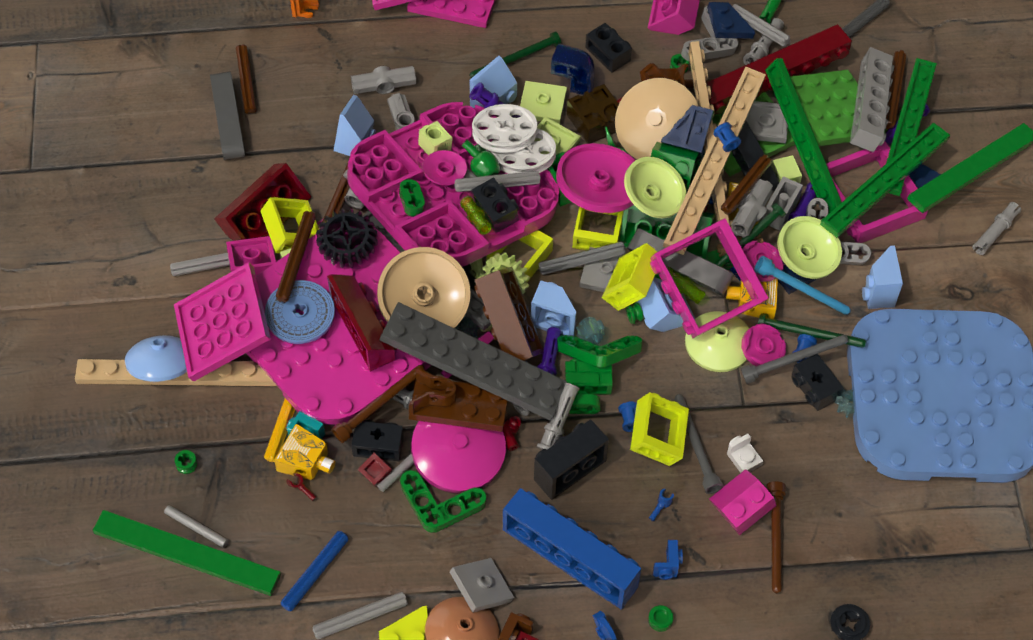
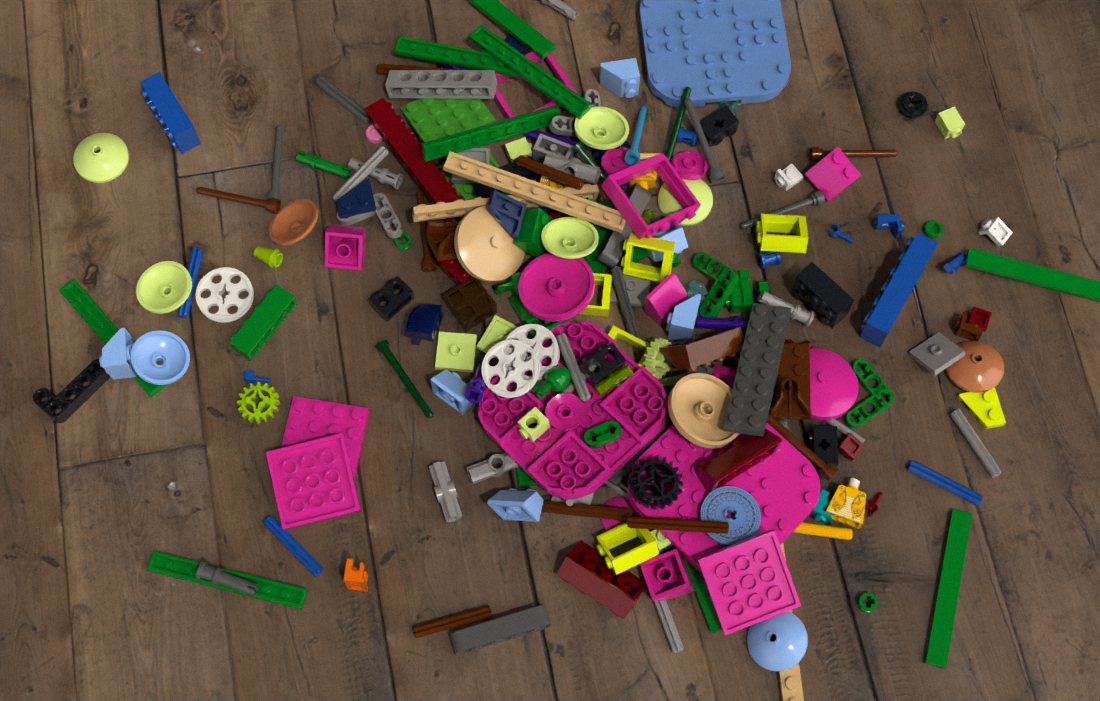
camera: 95 degrees left, 10 degrees up
(196, 526) = (923, 583): light grey bar -> none
(584, 292) = (665, 298): none -> dark pink slope
(727, 137) = (521, 178): blue bush -> none

